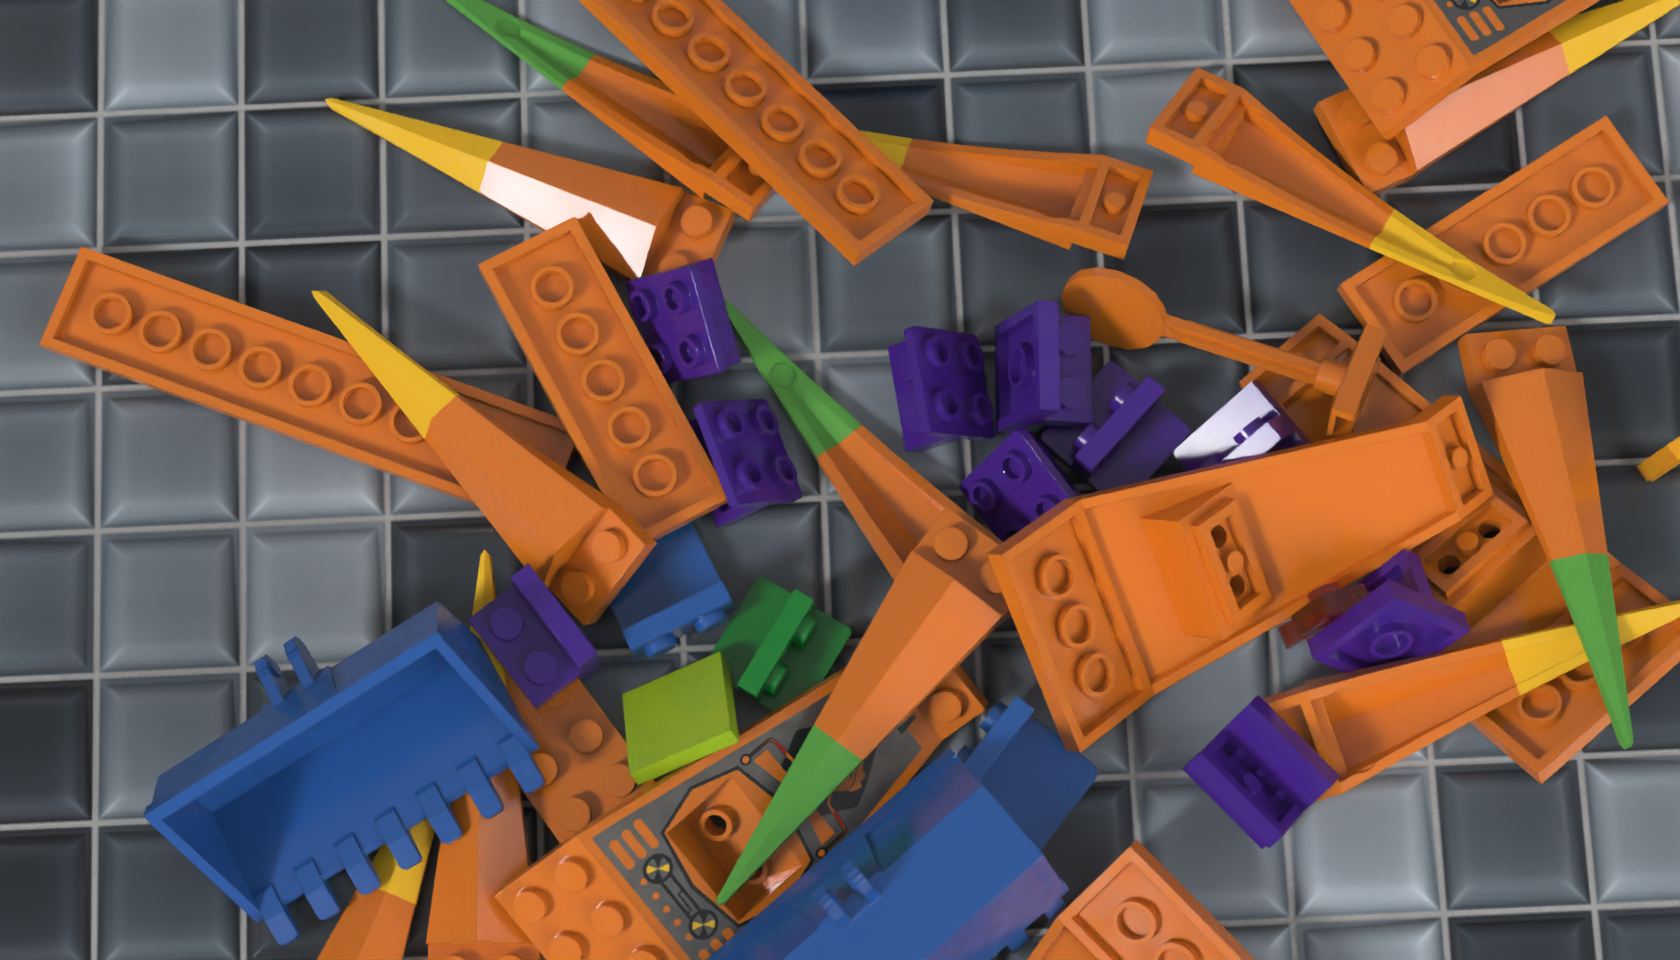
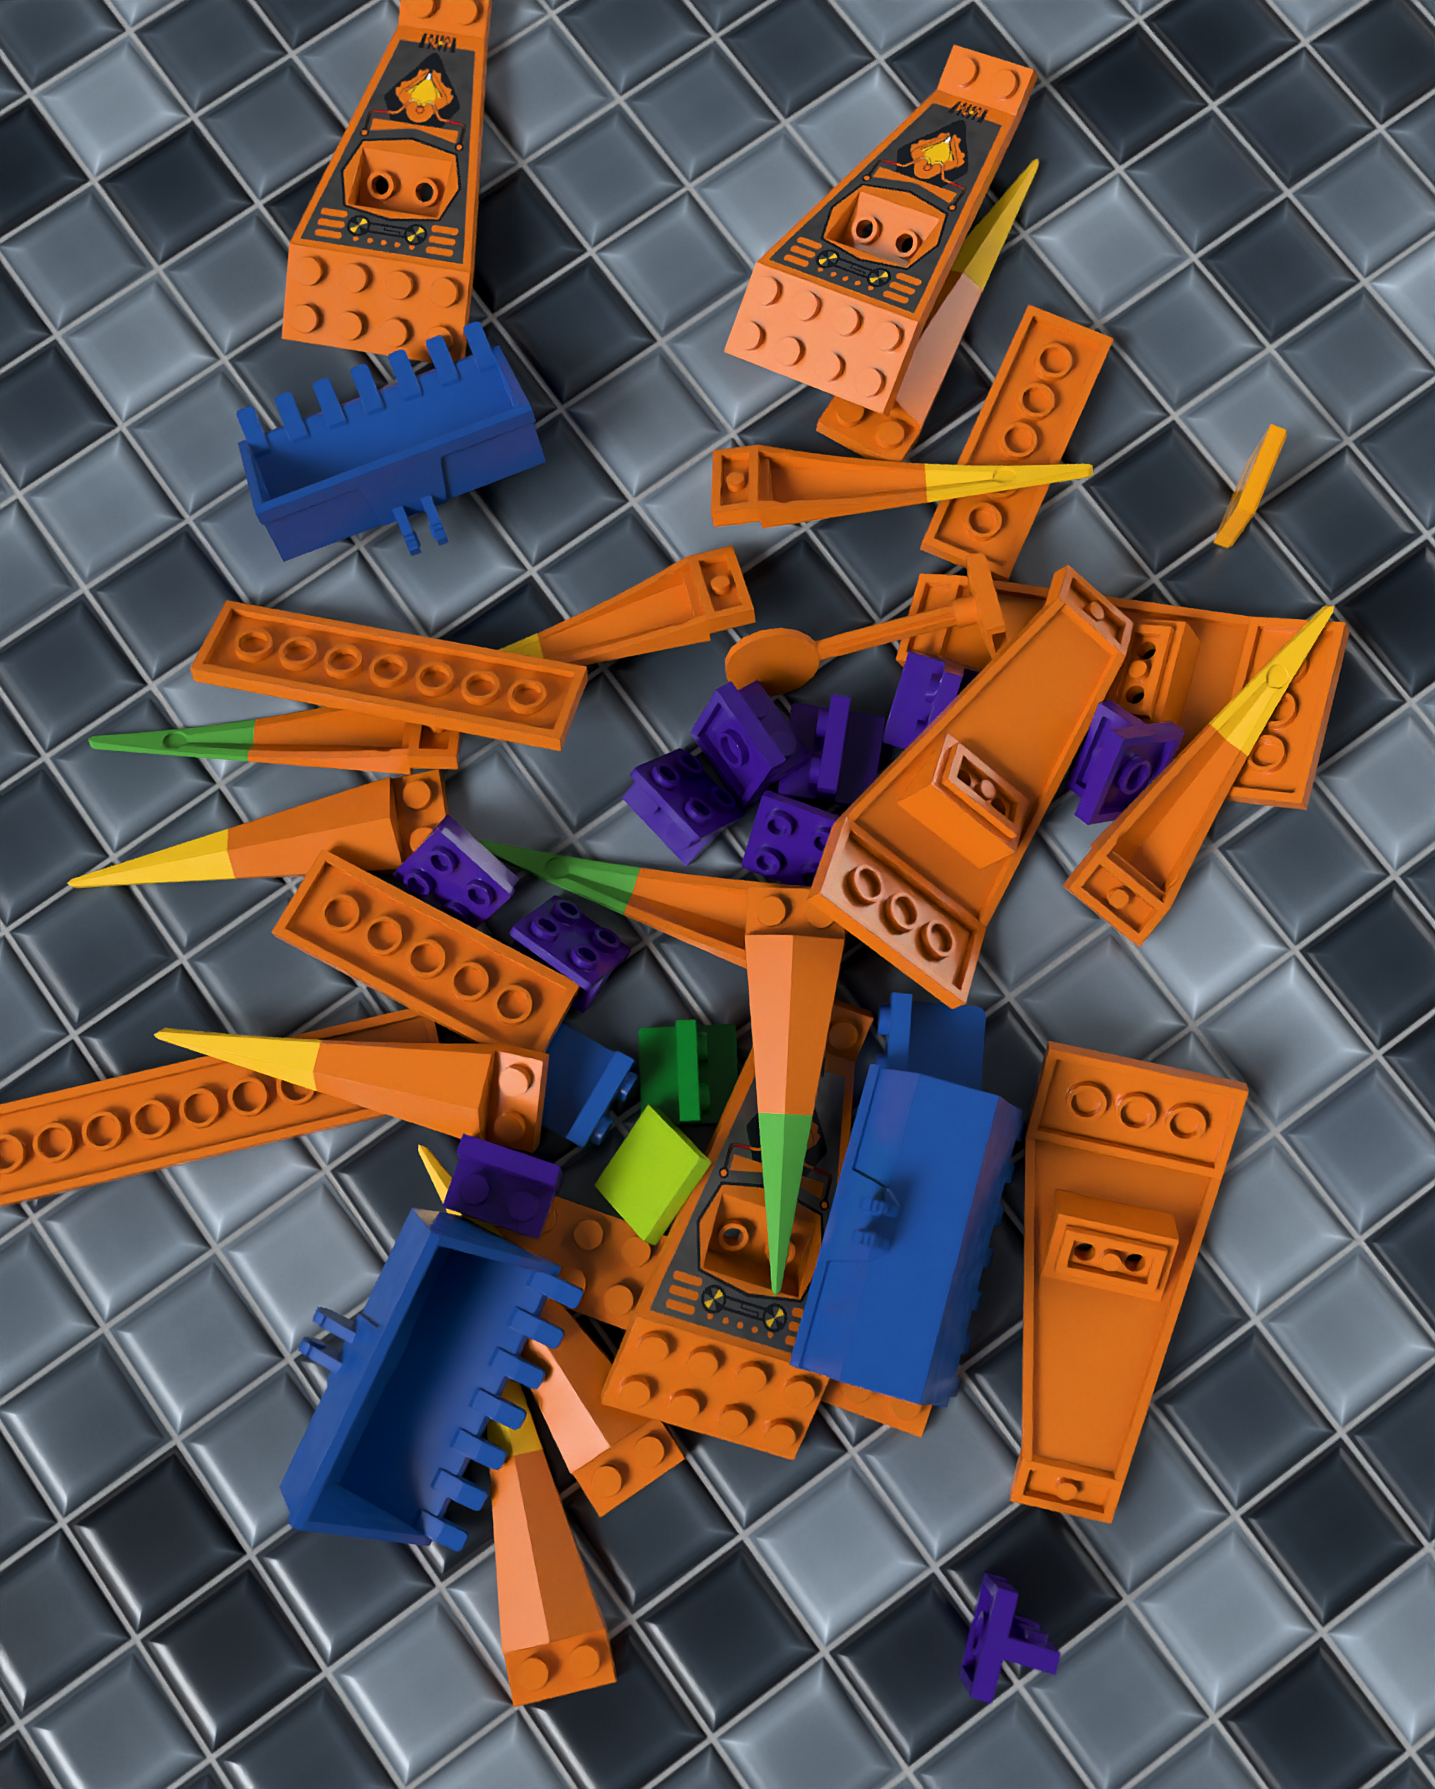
camera: 35 degrees left, 0 degrees up
(1261, 773) = (1104, 933): dark purple bracket -> none
(1323, 608) = (1072, 780): clear red plate -> none
(1541, 427) = (1134, 555): orange plate -> none

